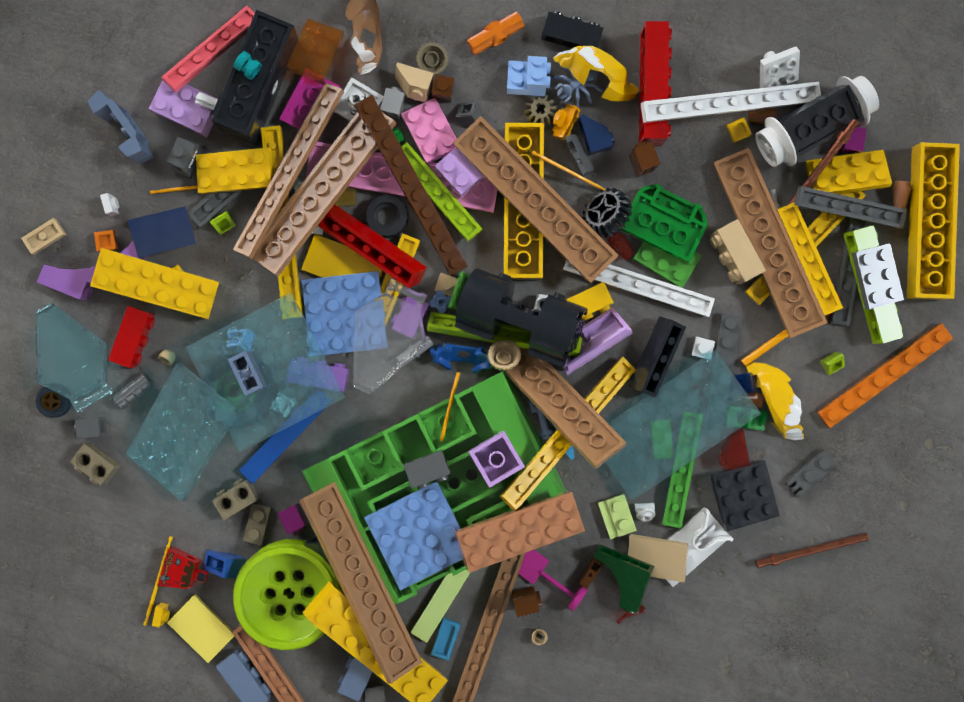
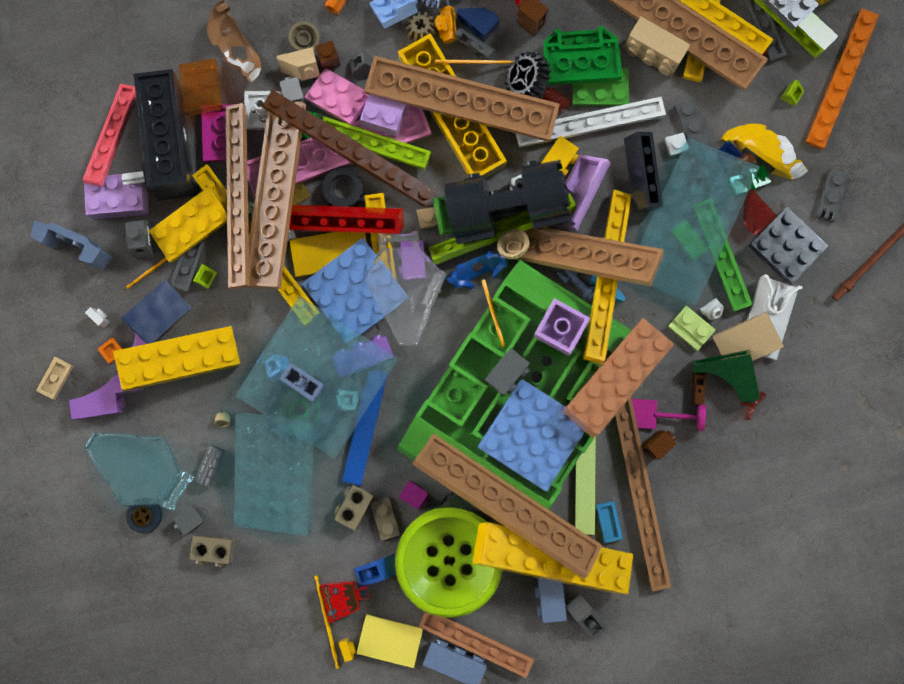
camera: 25 degrees left, 5 degrees down
(132, 337) = (182, 419): red brick -> none
(247, 65) = (152, 122): teal wheel -> none
(435, 301) = (426, 234): medium blue plate -> none
(537, 640) = (688, 466): tan hinge -> none
(764, 348) = (728, 113): light orange bar -> none

